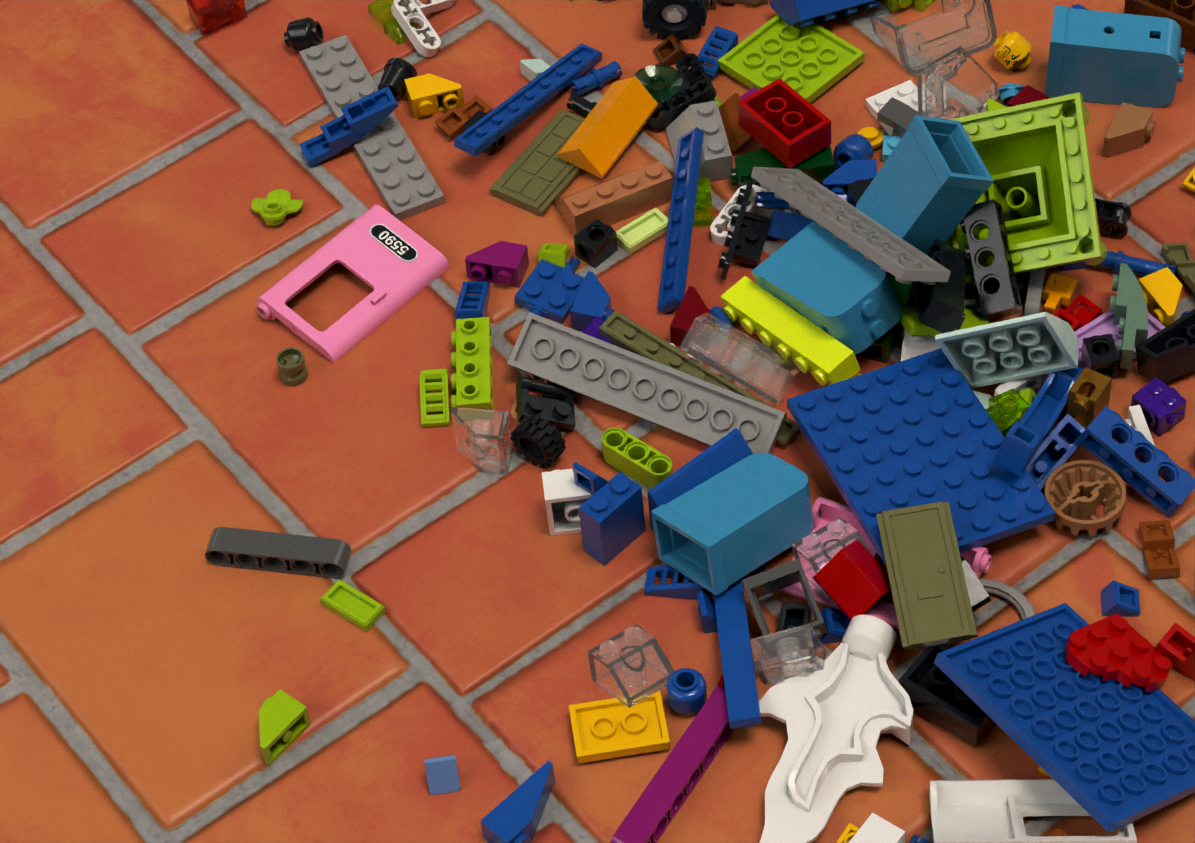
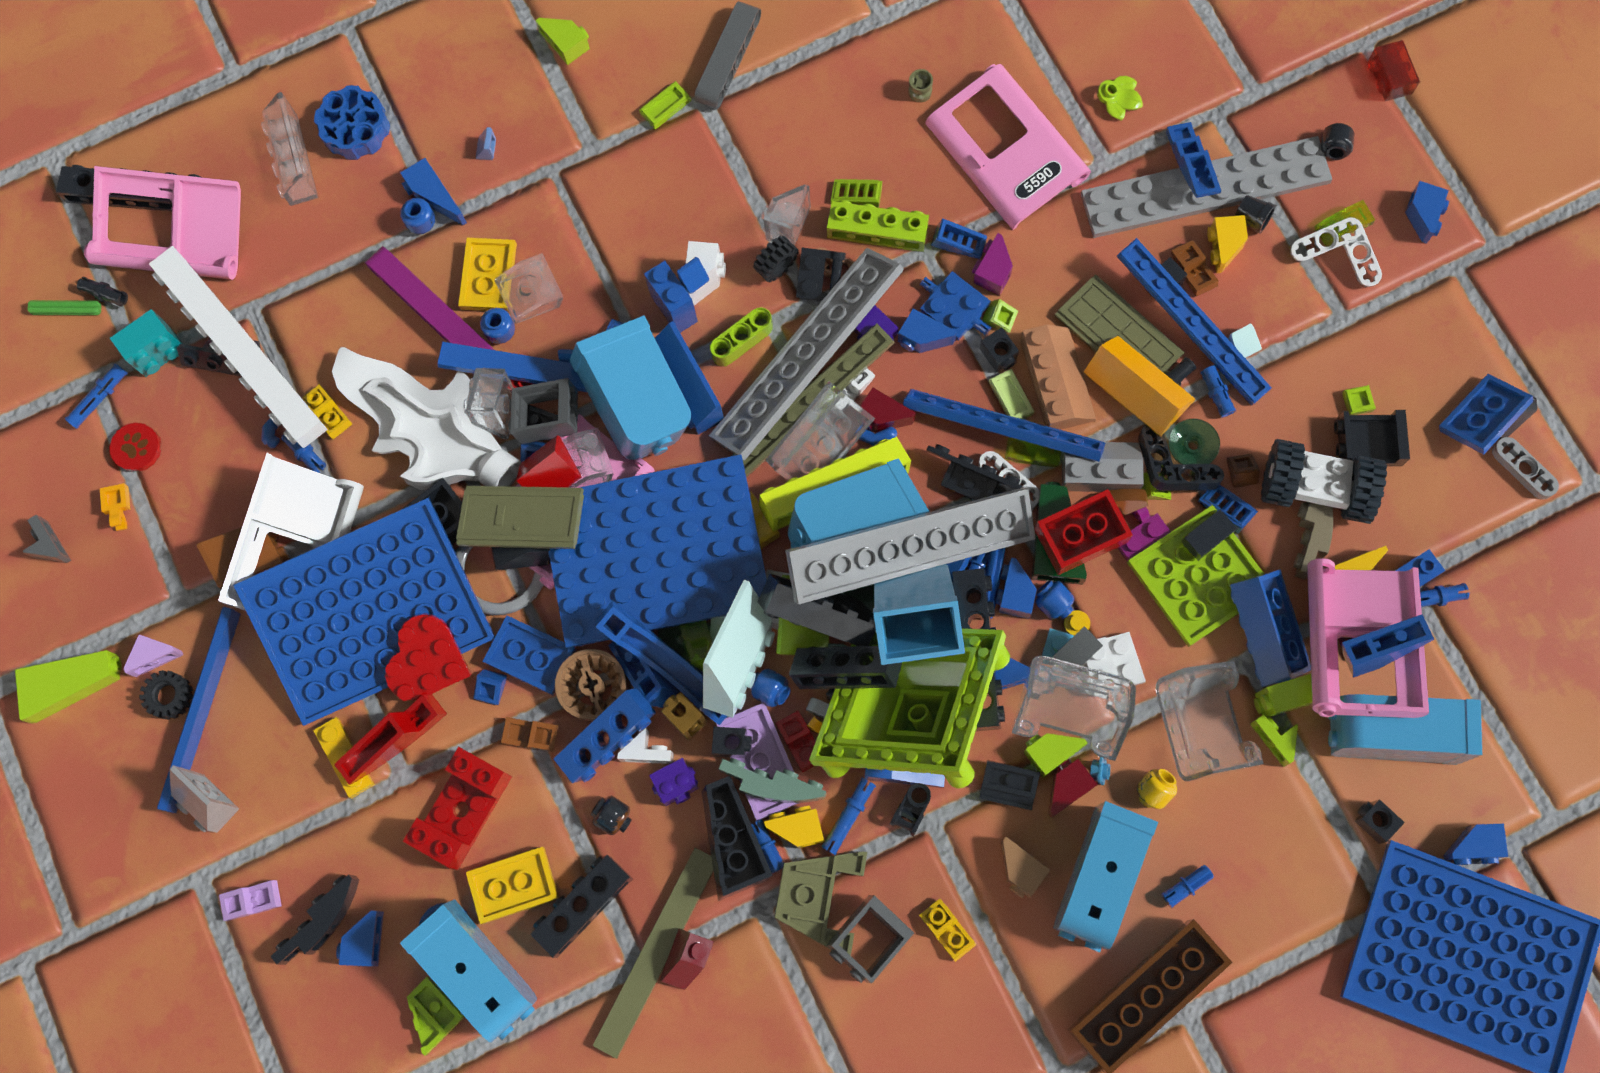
camera: 105 degrees right, 25 degrees up
(560, 814) = (417, 216): none -> blue head
(753, 53) = (1208, 535): none -> black slope
(1071, 567) = (527, 654): none -> blue plate

